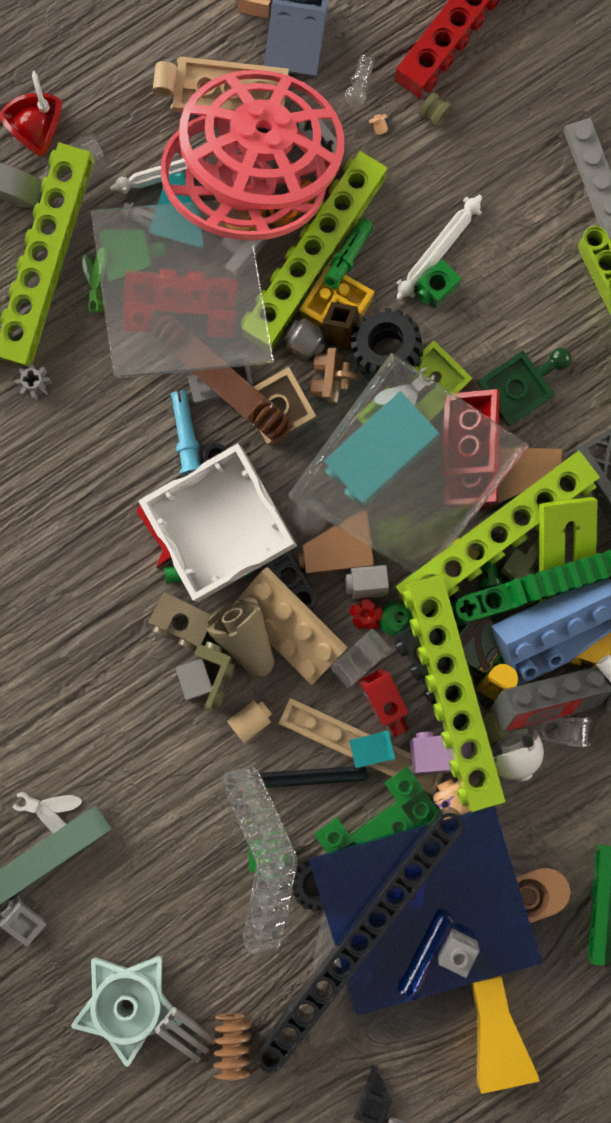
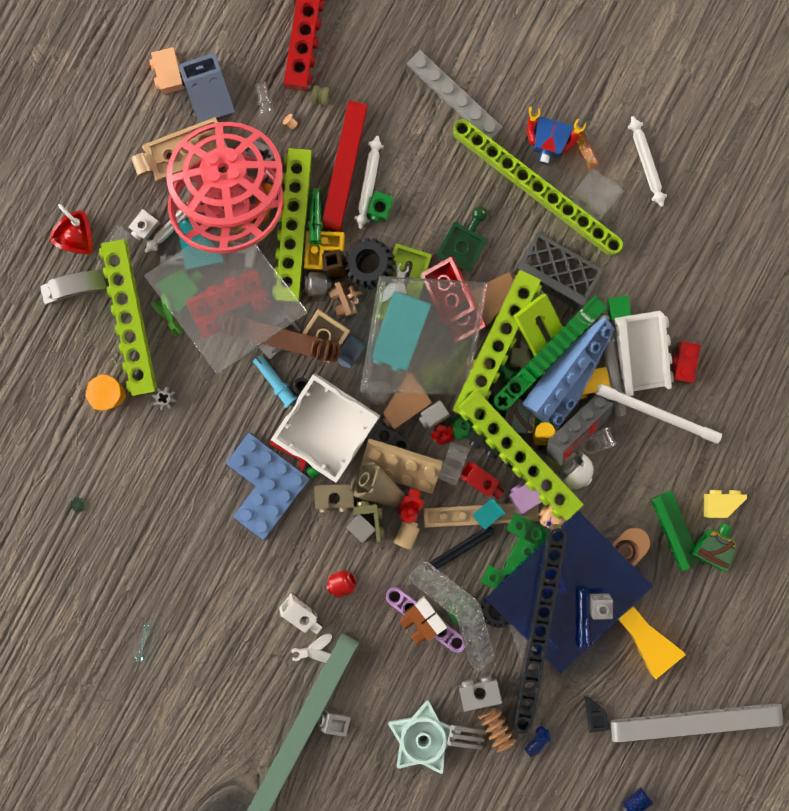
camera: 25 degrees left, 5 degrees up
(50, 740) = (295, 609): none -> white torso
(115, 565) = (275, 483): none -> medium blue plate
(126, 155) = (144, 226): none -> white brick
(130, 739) = (341, 583): none -> red head
(210, 858) = (426, 629): none -> hips
(214, 860) = (445, 639): none -> lavender beam
(245, 998) = (490, 697): none -> light grey brick
(274, 684) = (410, 506): none -> red hips
(276, 1095) = (537, 743): none -> clear blue arm
(301, 446) = (350, 352): none -> sand blue bracket
(419, 210) = (344, 165): none -> red beam

